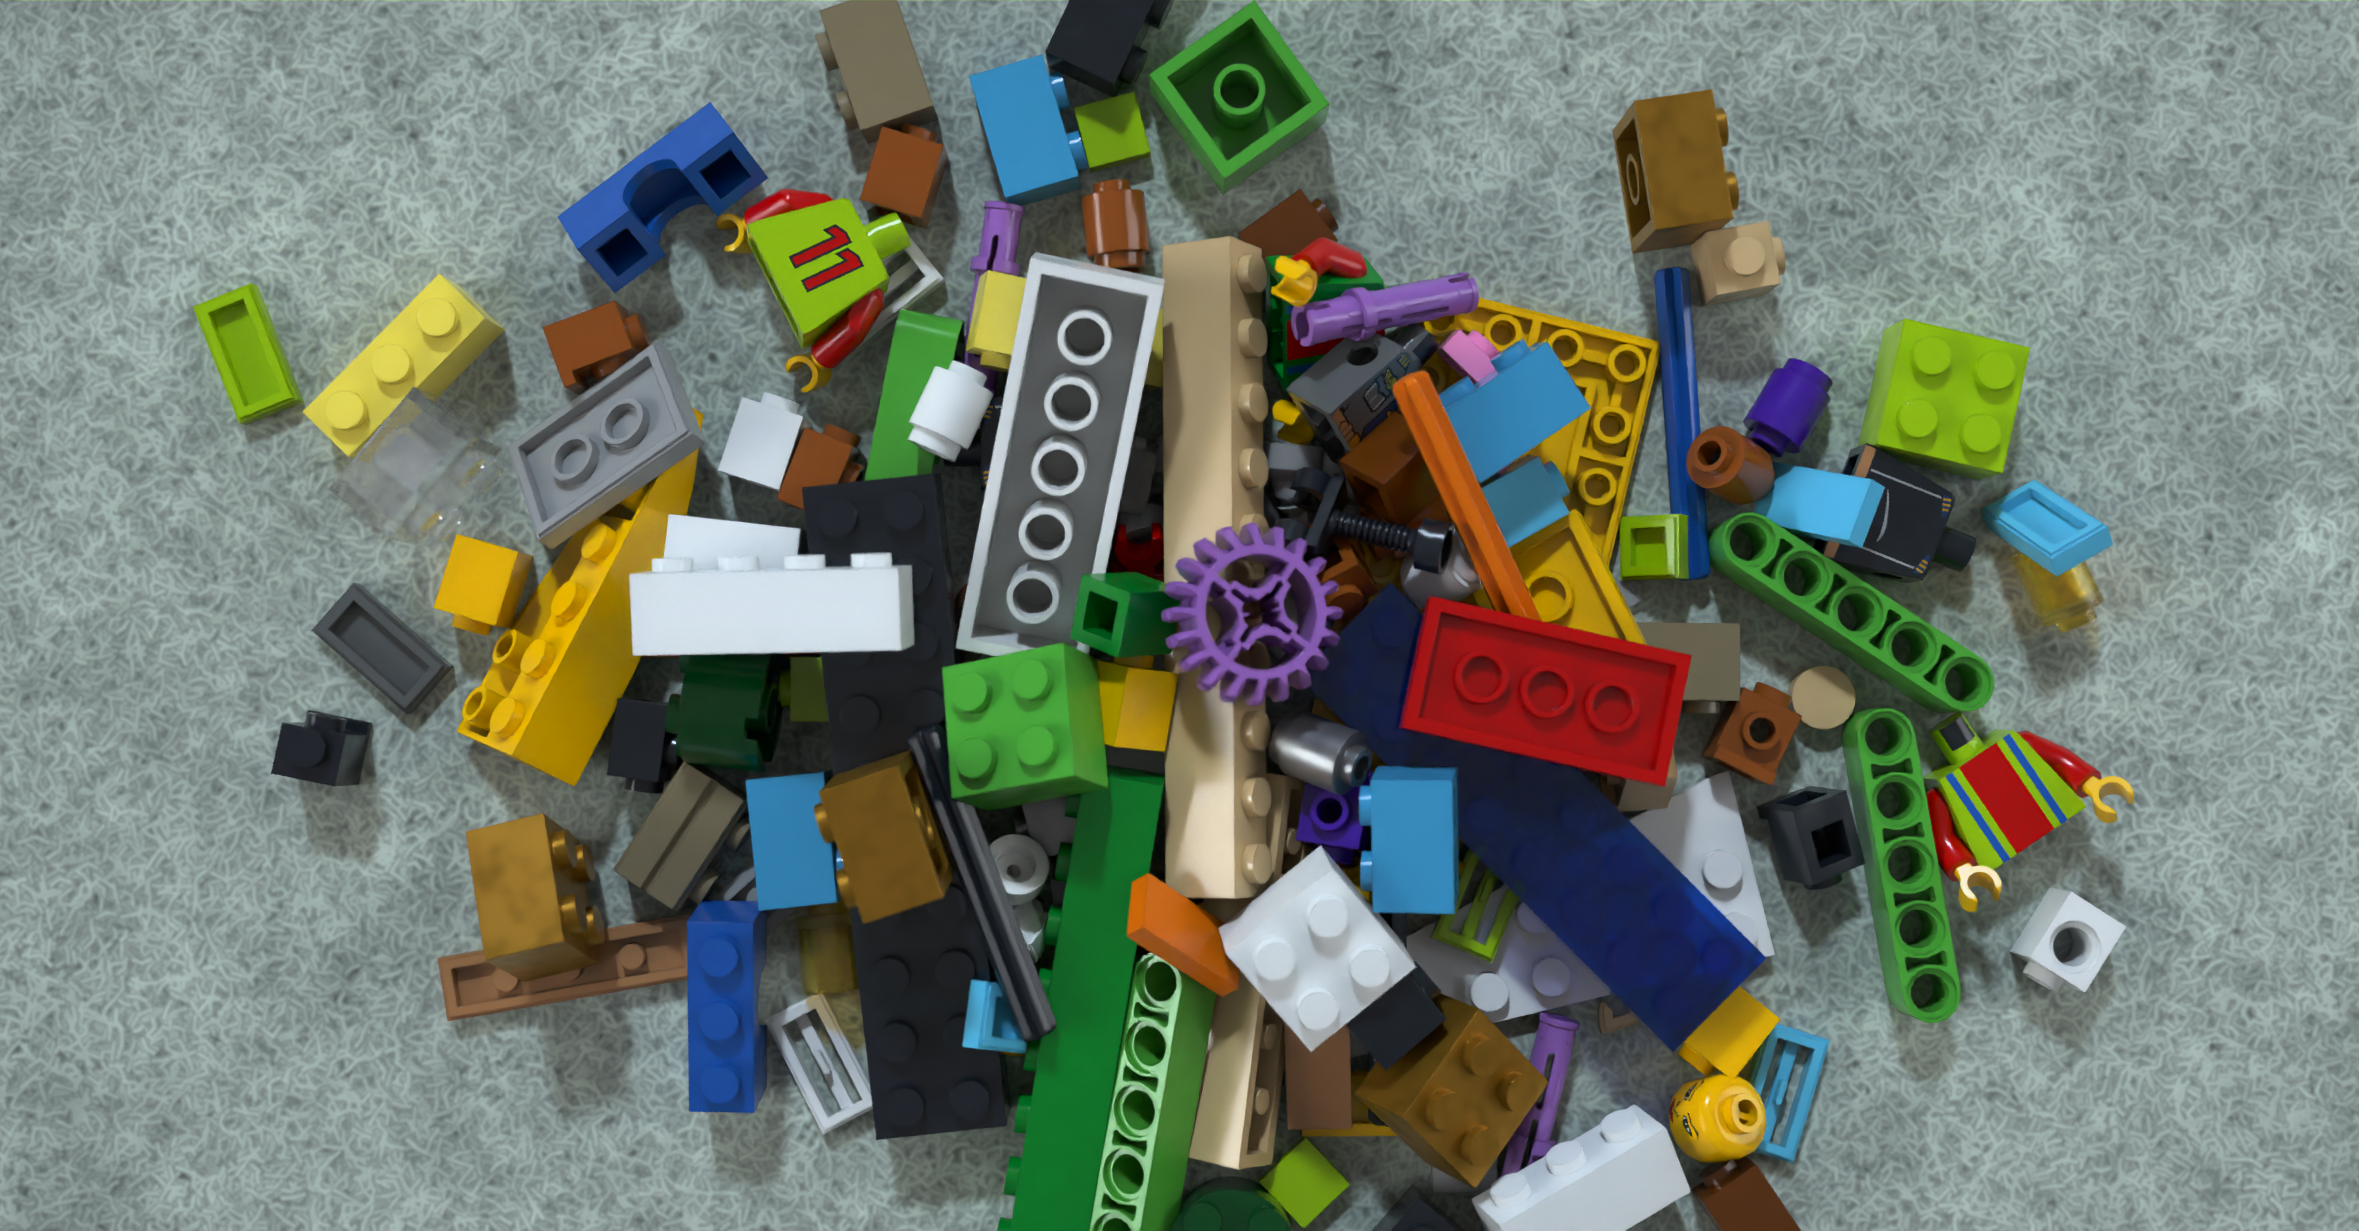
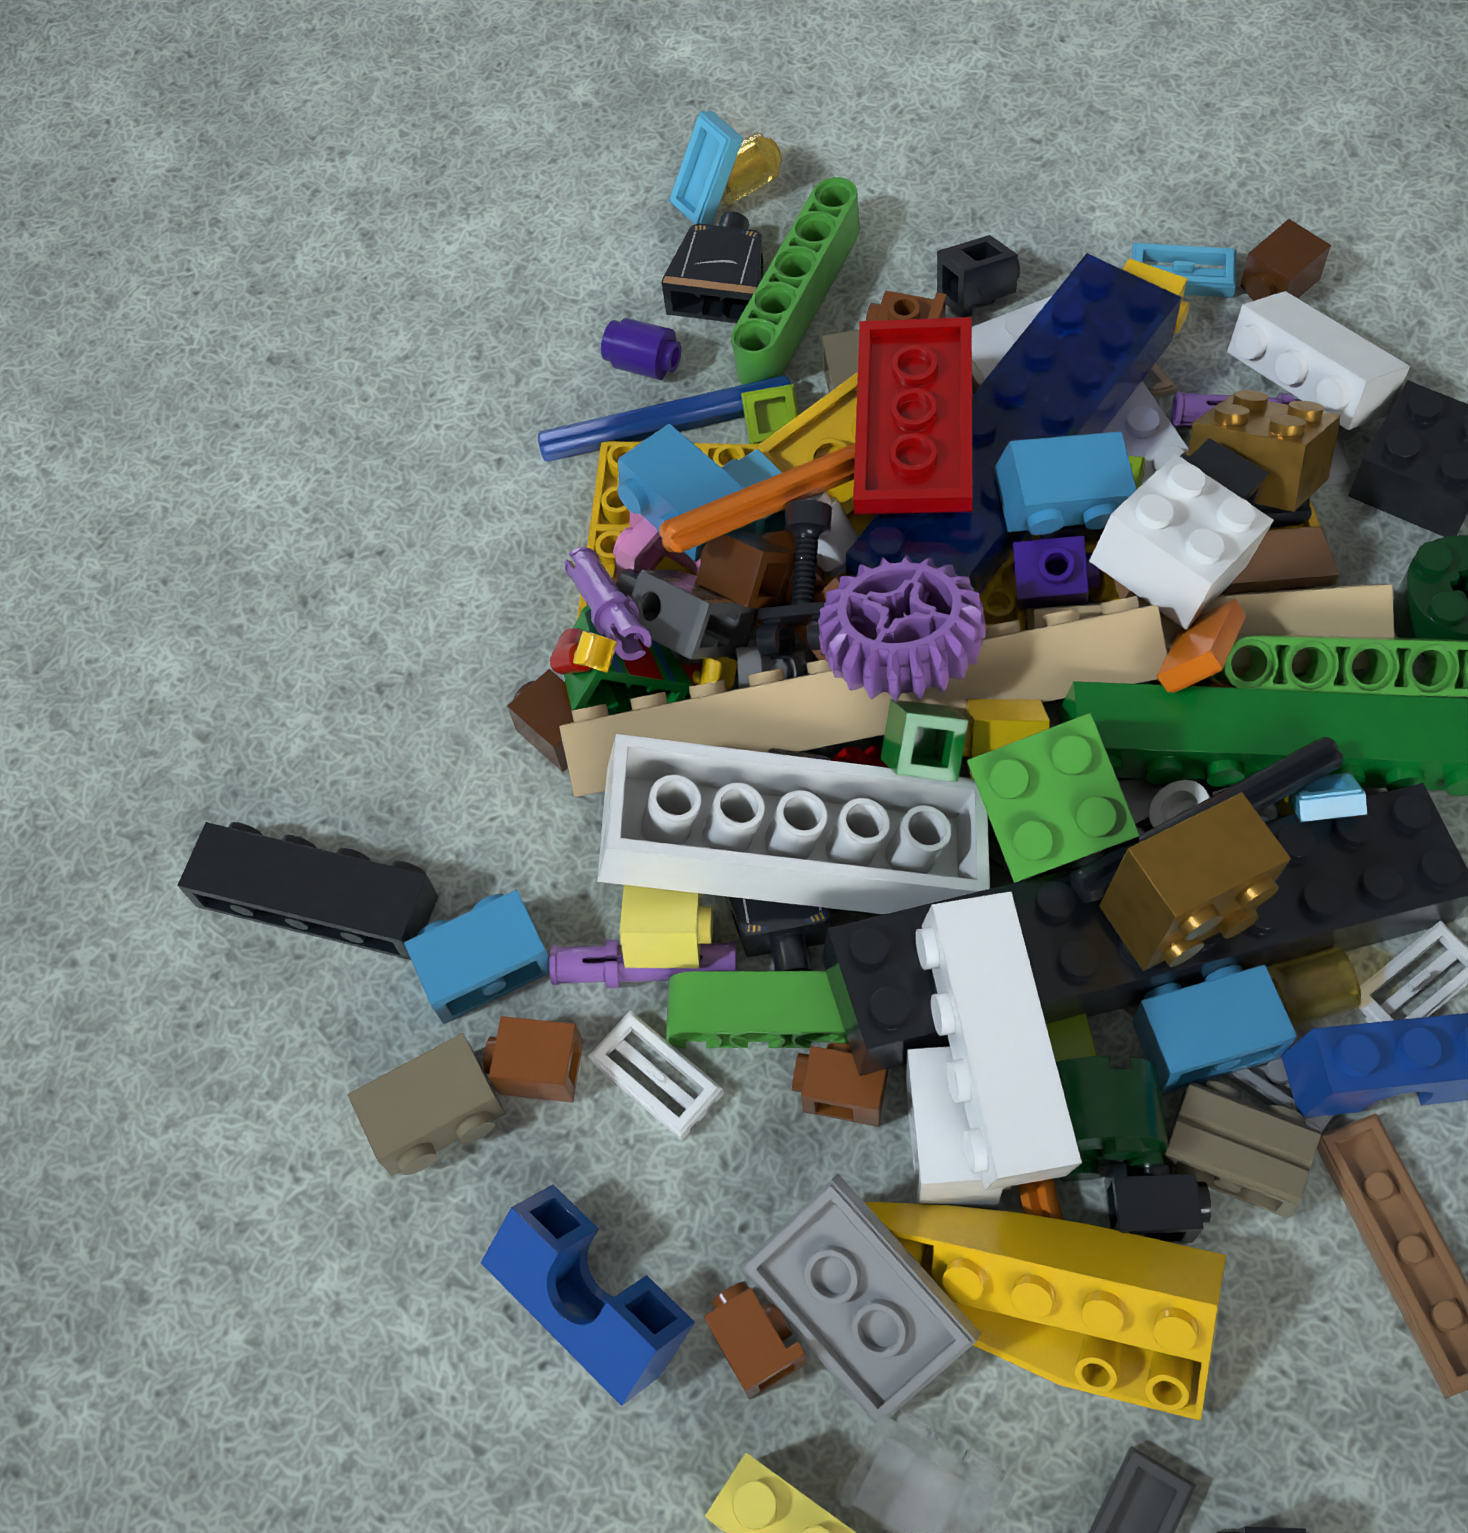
camera: 90 degrees left, 25 degrees down
(482, 584) = (1035, 1417): yellow brick -> none
(534, 898) = (1357, 1267): pearl gold brick -> none
(763, 441) = (822, 1142): white brick -> none
(820, 270) = (639, 1112): lime torso -> none
(950, 410) = (760, 951): white brick -> none
(1112, 132) = (467, 883): lime tile -> none
(1116, 226) = (559, 862): dark orange brick -> none
(1238, 97) = (430, 773): bright green brick -> none
(1304, 1181) = (1375, 563): lime tile -> none
(1321, 752) = (1008, 575): flat silver brick -> none
(1674, 170) = (460, 439): pearl gold brick -> none
(1712, 1115) = (1218, 288): yellow head -> none
(1730, 466) = (710, 365): dark orange brick -> none
(1737, 263) = (530, 396): tan brick -> none
(1821, 504) = (714, 304): medium azure tile -> none
(1822, 697) = (860, 291): tan tile -> none
(1922, 885) = (1006, 209): bright green beam -> none
(1944, 398) = (616, 251): lime brick -> none
(2003, 797) = (917, 169): torso -> none
(2092, 934) = (1012, 117): white brick -> none

